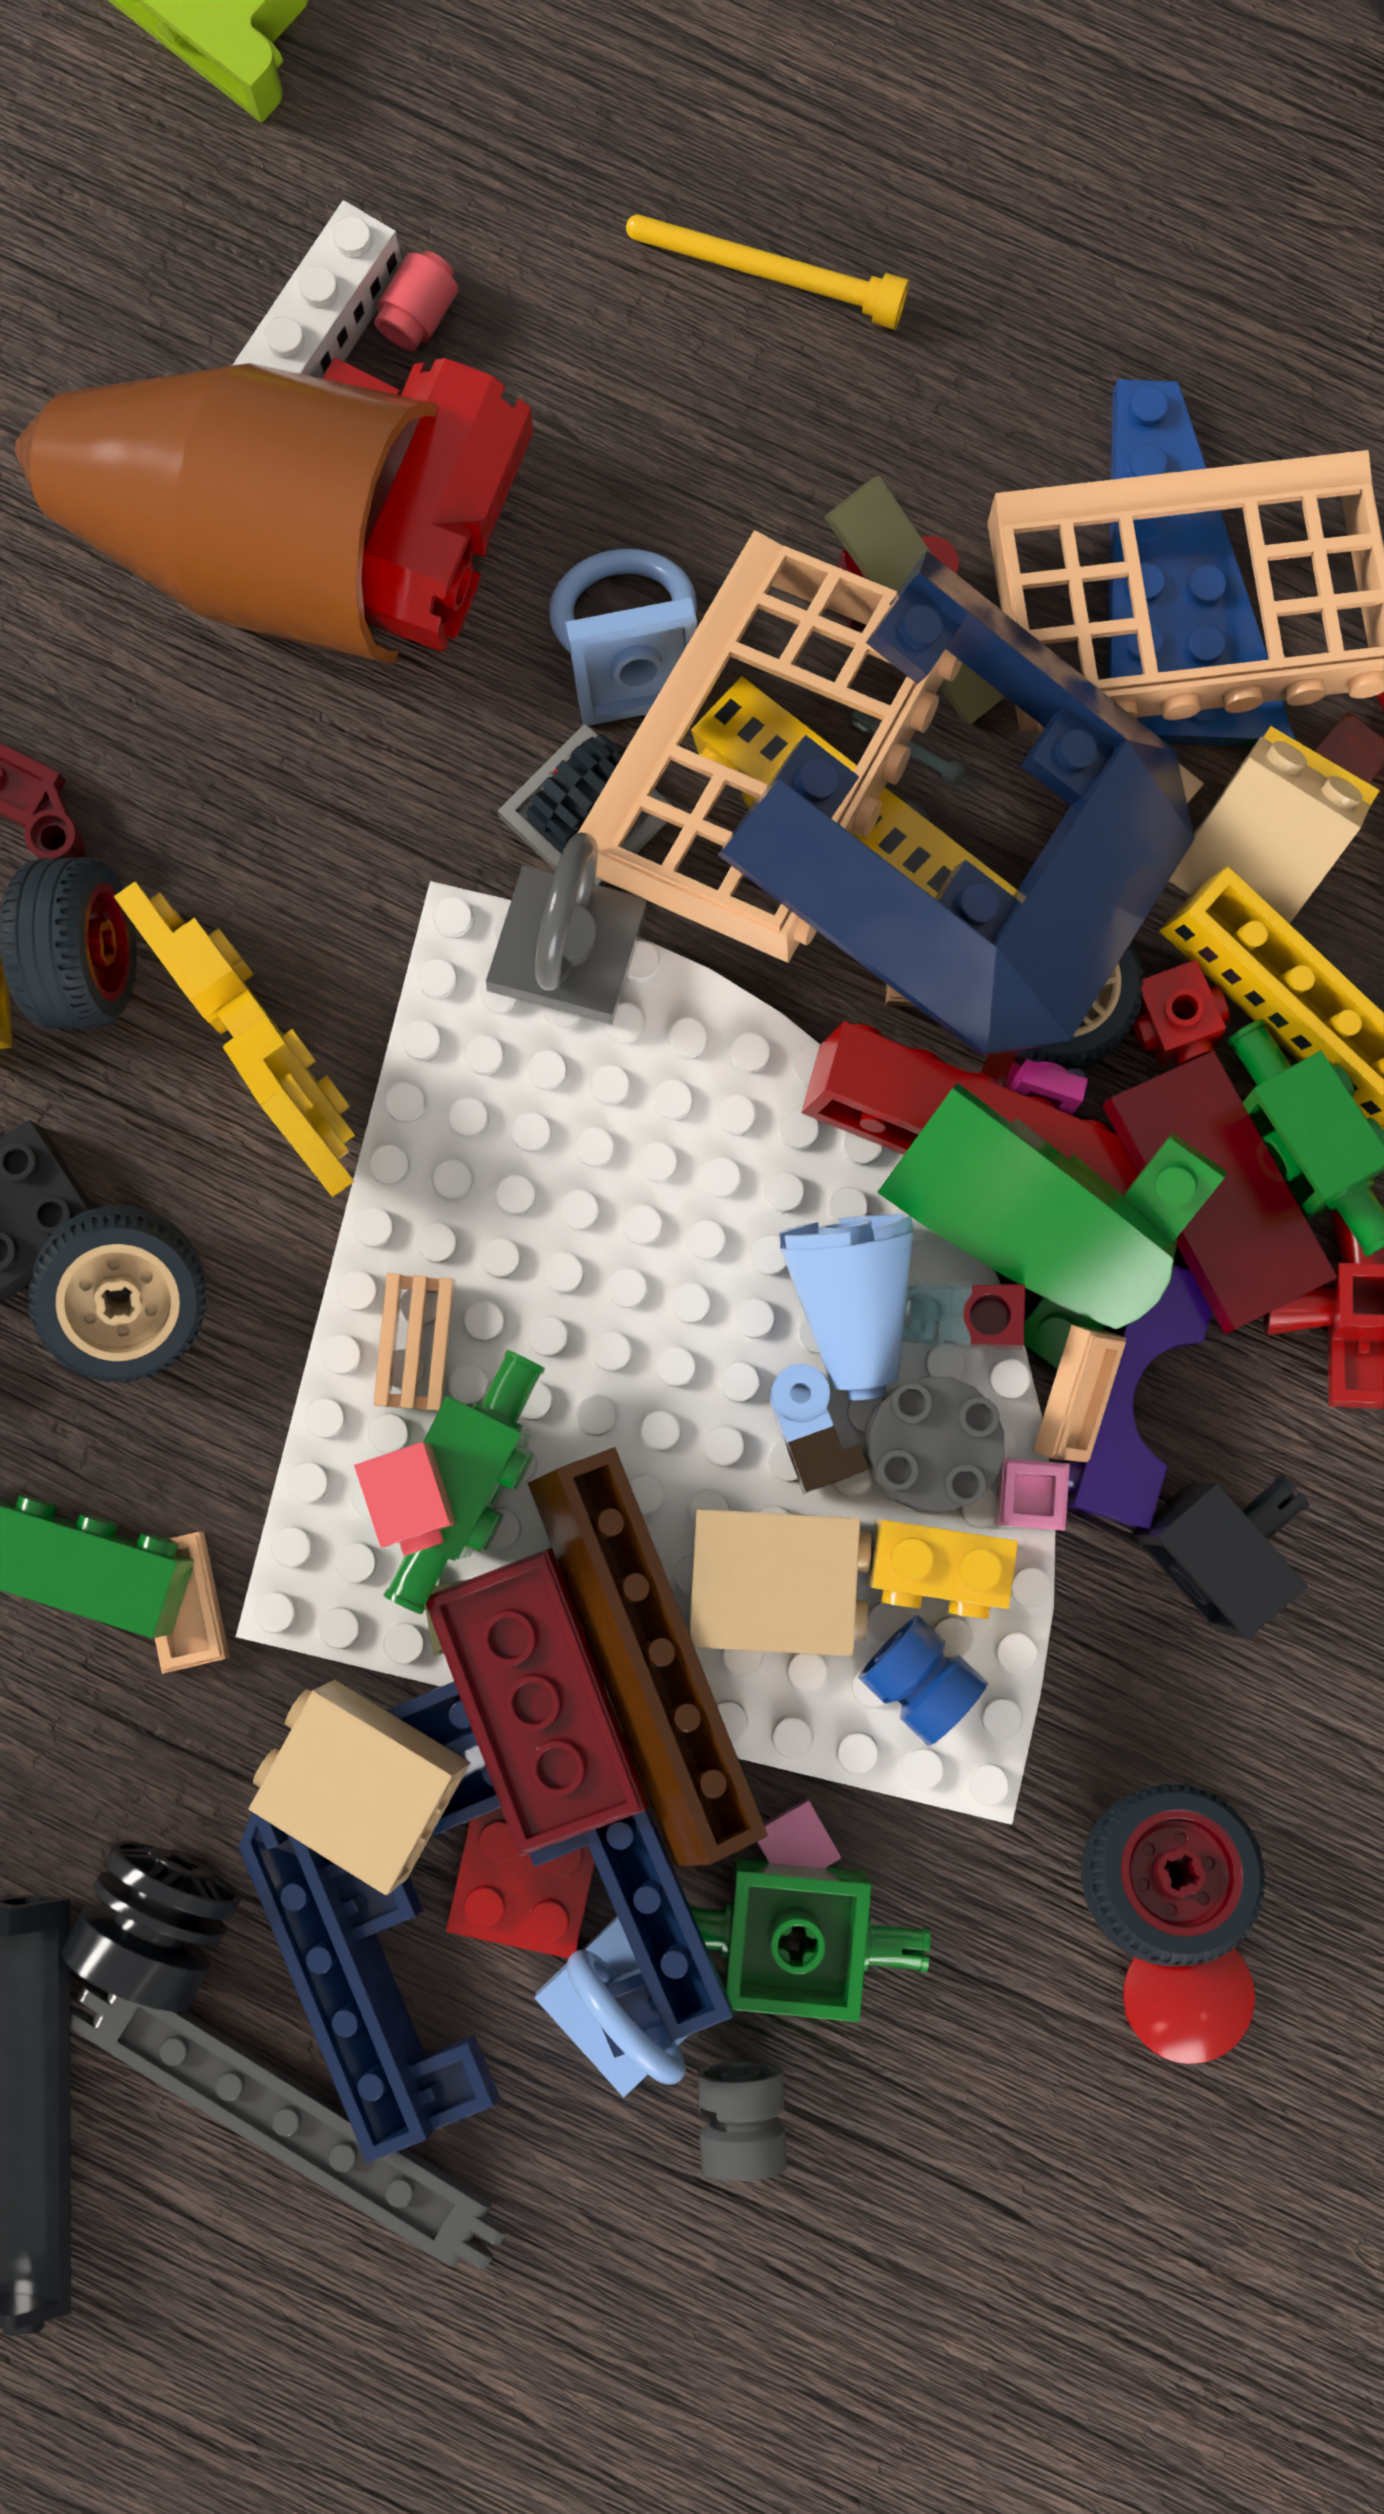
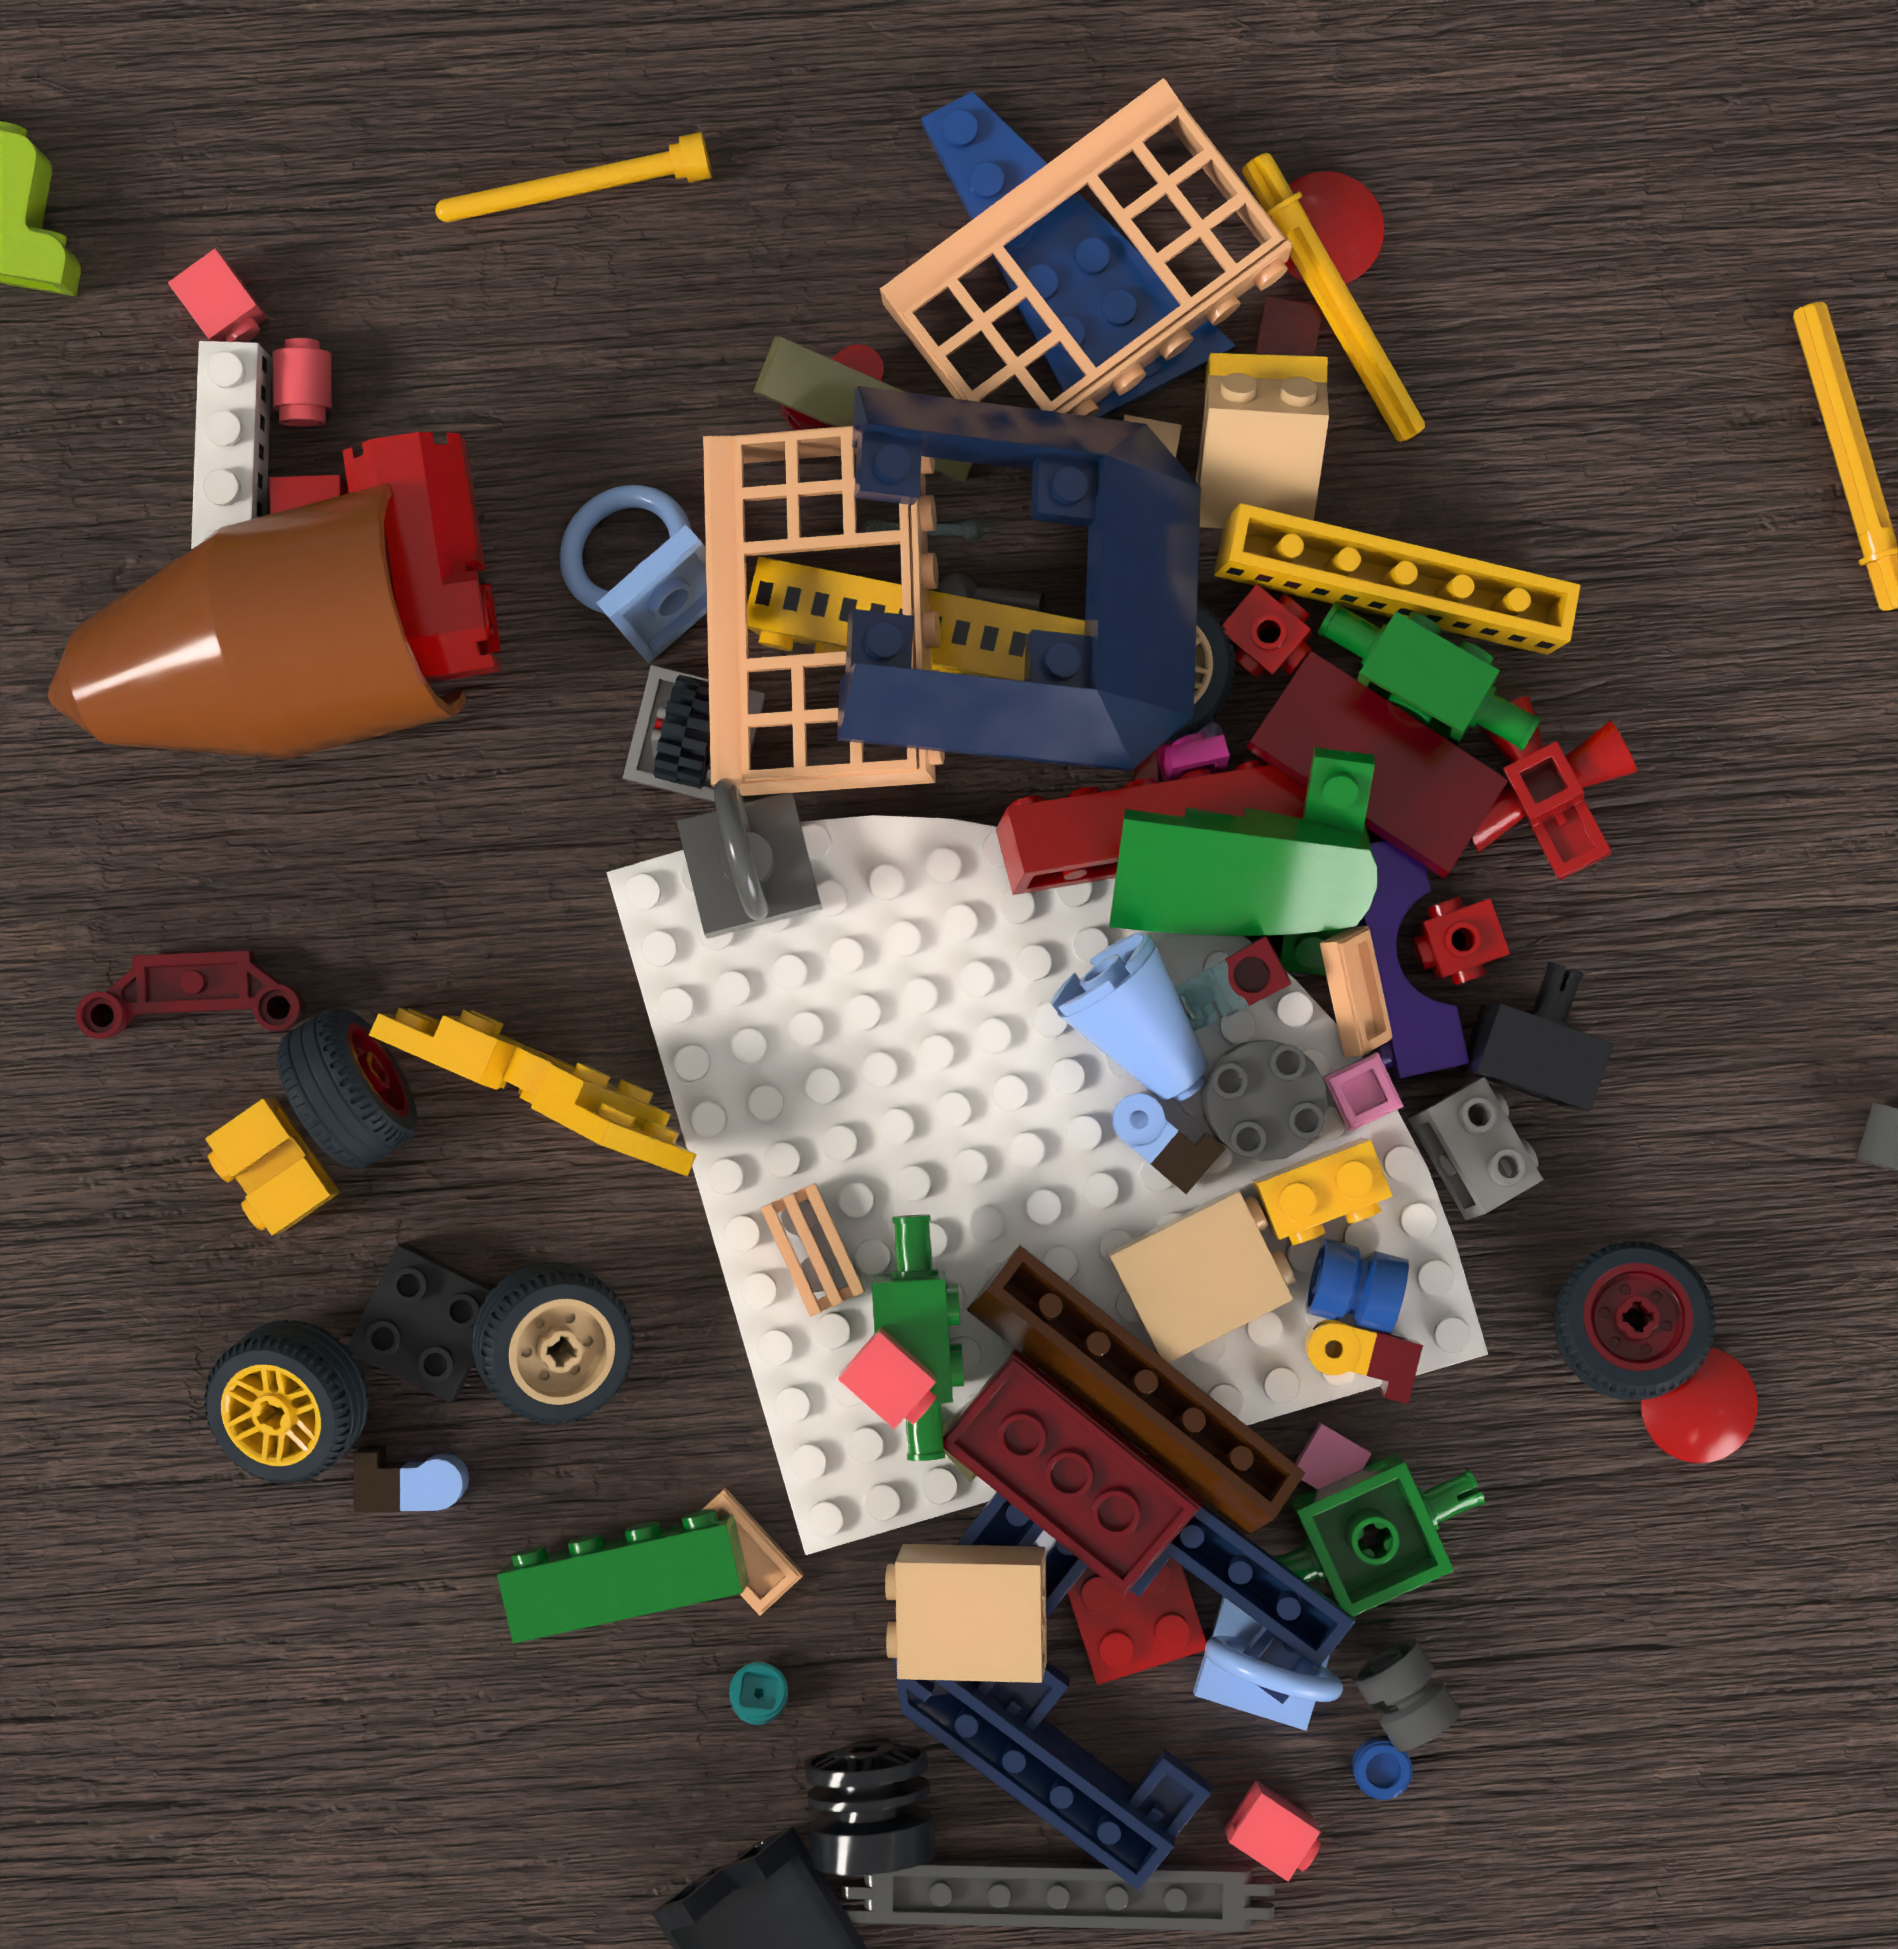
camera: 30 degrees left, 5 degrees up
(116, 1748) = (758, 1693): none -> teal tile
(385, 181) = (218, 300): none -> coral brick
(534, 2181) = (1274, 1831): none -> coral brick
(675, 2179) = (1381, 1769): none -> blue tile
(874, 1734) = (1344, 1347): none -> leg
(1109, 1616) = (1476, 1148): none -> light grey brick
(1225, 1400) = (1480, 939): none -> red brick

